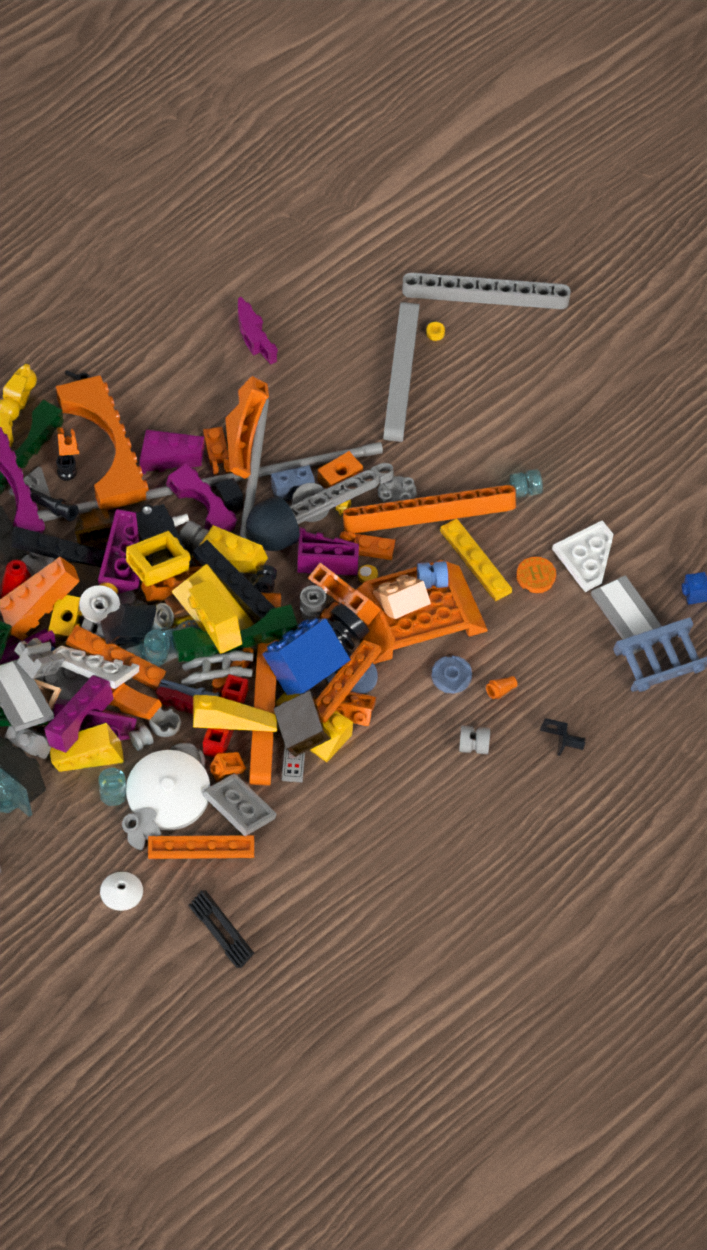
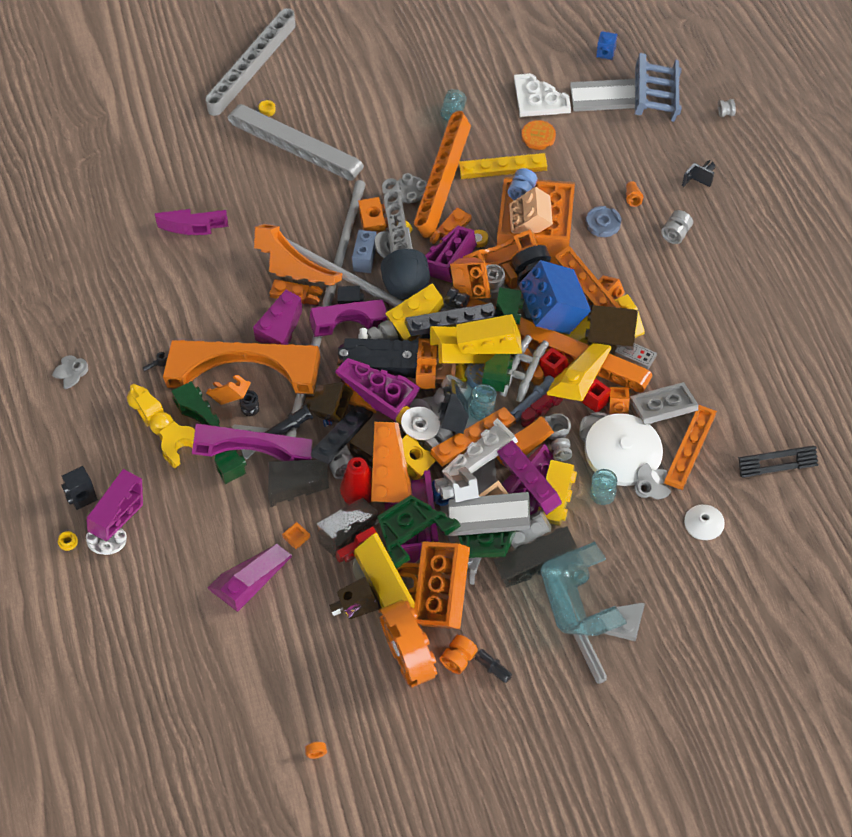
camera: 60 degrees left, 0 degrees up
(35, 318) = (70, 370): none -> light grey plate
(153, 574) = (400, 372): yellow window -> none
(294, 577) = (471, 277): none -> orange slope
(673, 731) = (726, 108): none -> light grey wheel

